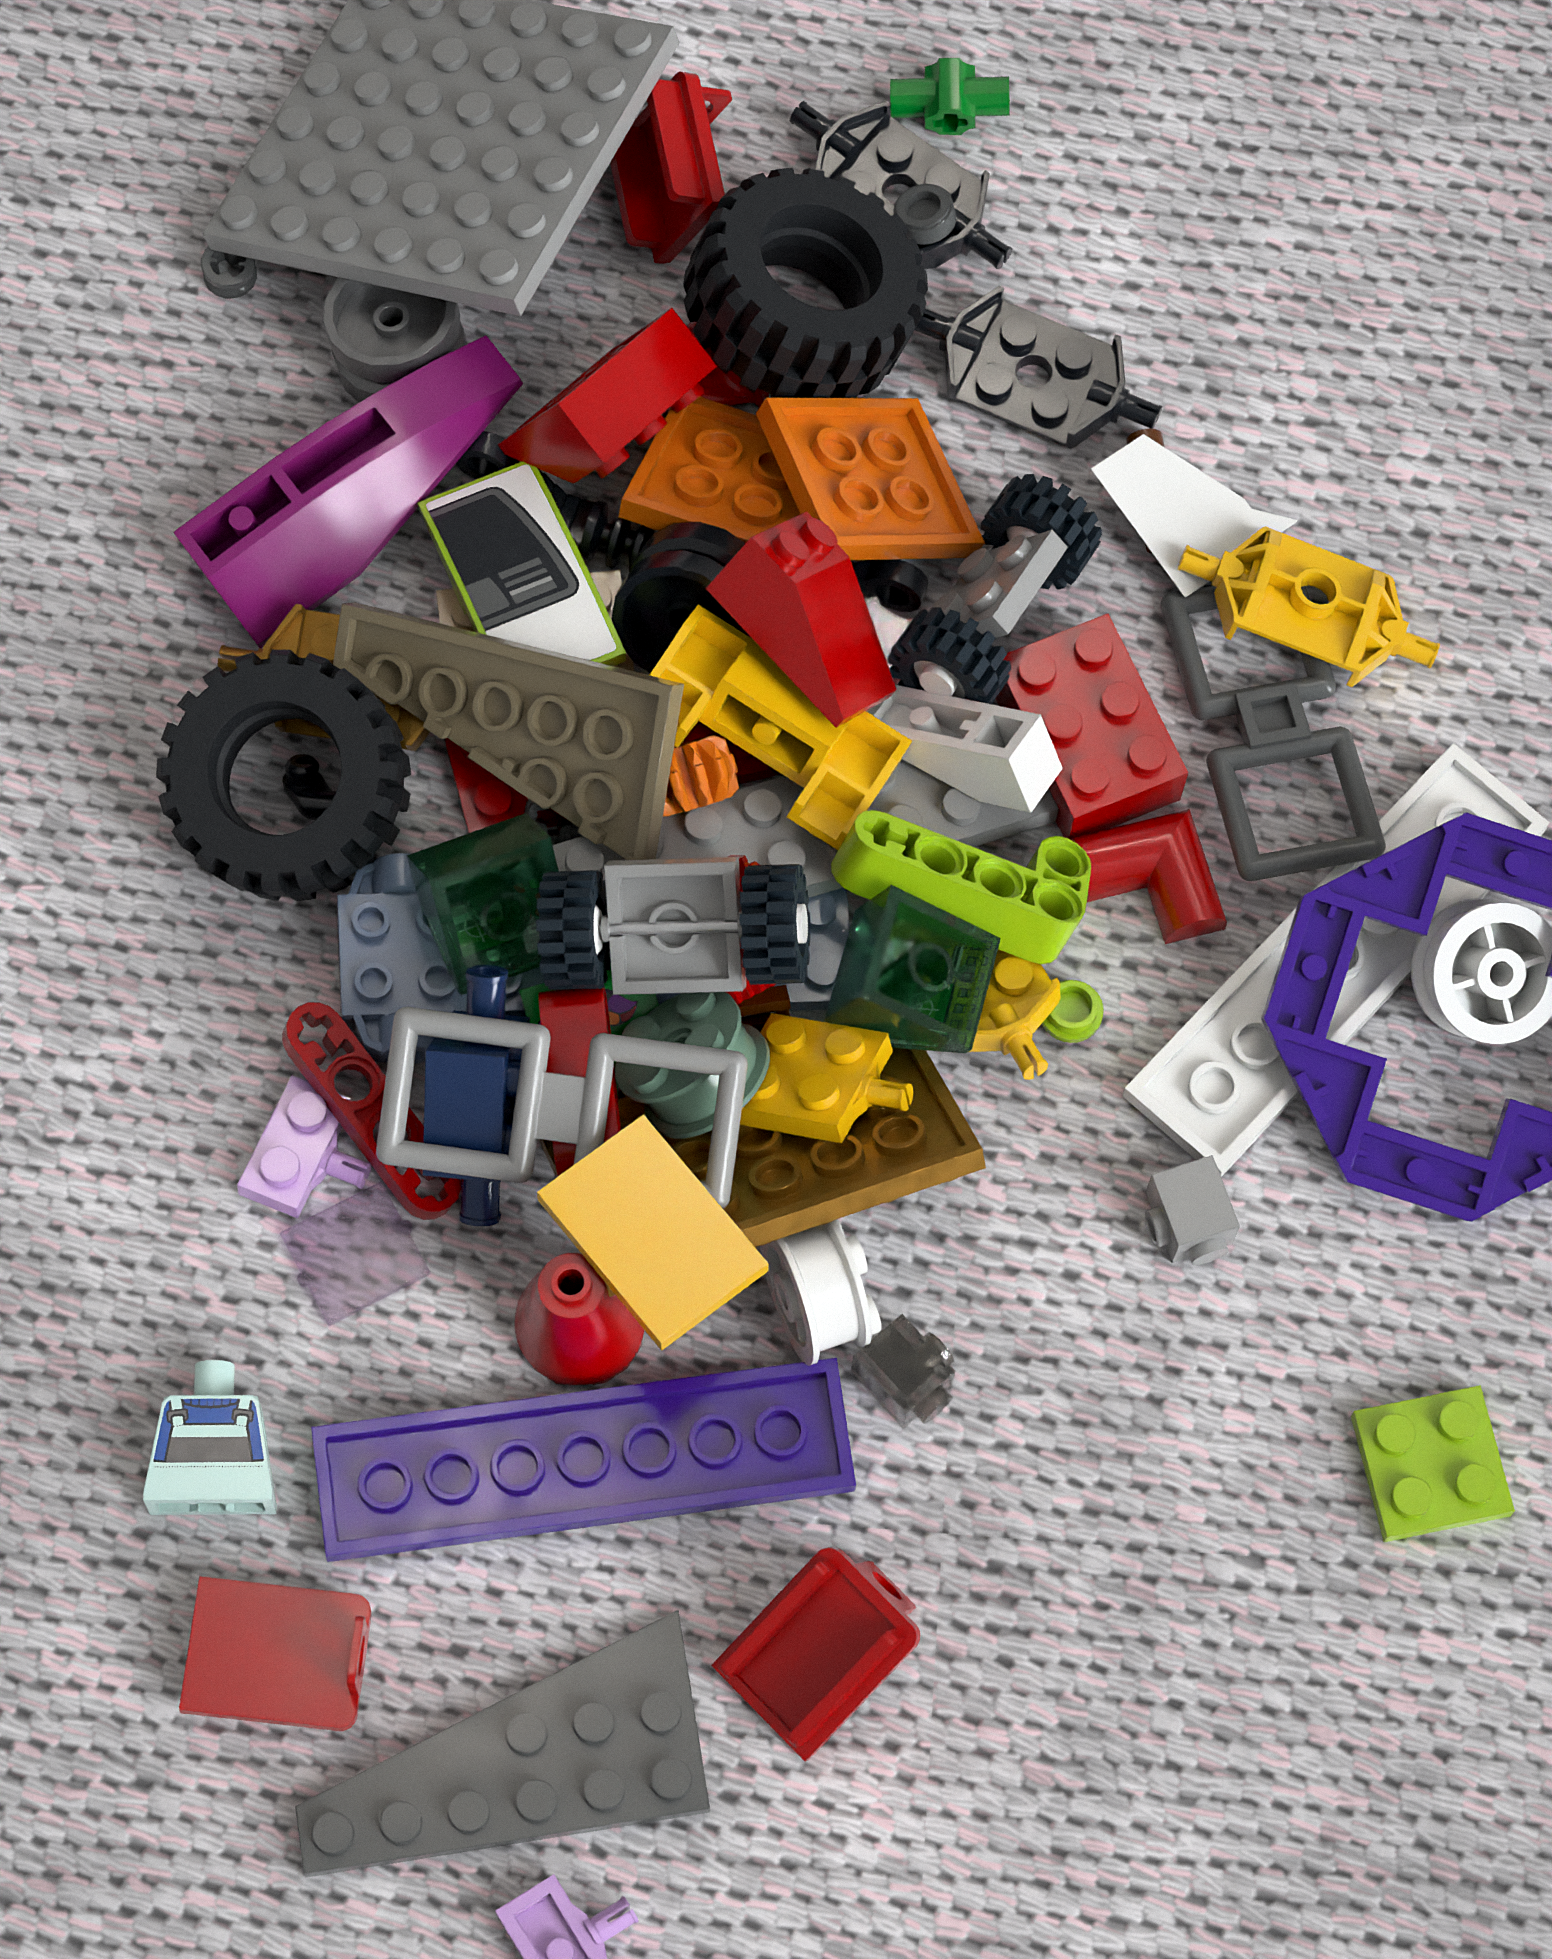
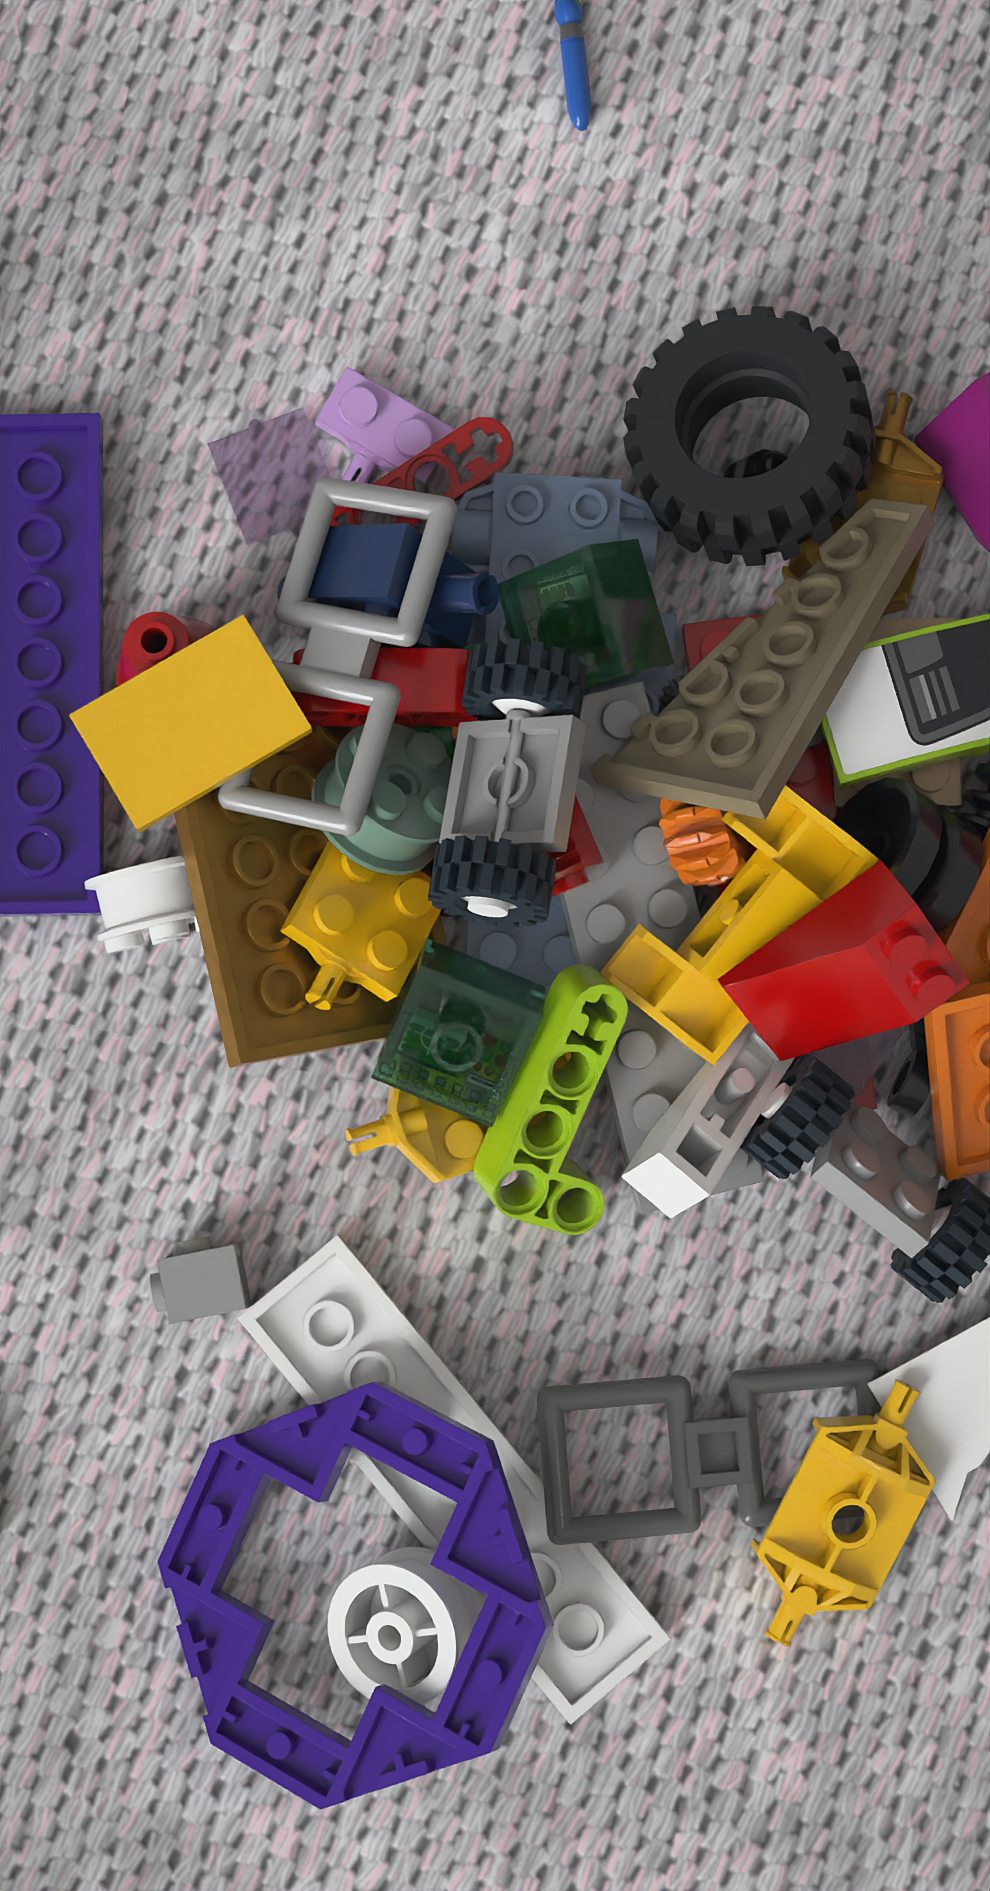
camera: 105 degrees right, 15 degrees up
(210, 1451) = (90, 322): light aqua torso -> none
(906, 1372) = (76, 979): clear smoke brick -> none
(1076, 1014) = (431, 1203): lime plate -> none
(1101, 725) = (729, 1259): brick -> none
(1167, 861) = (584, 1319): red brick -> none

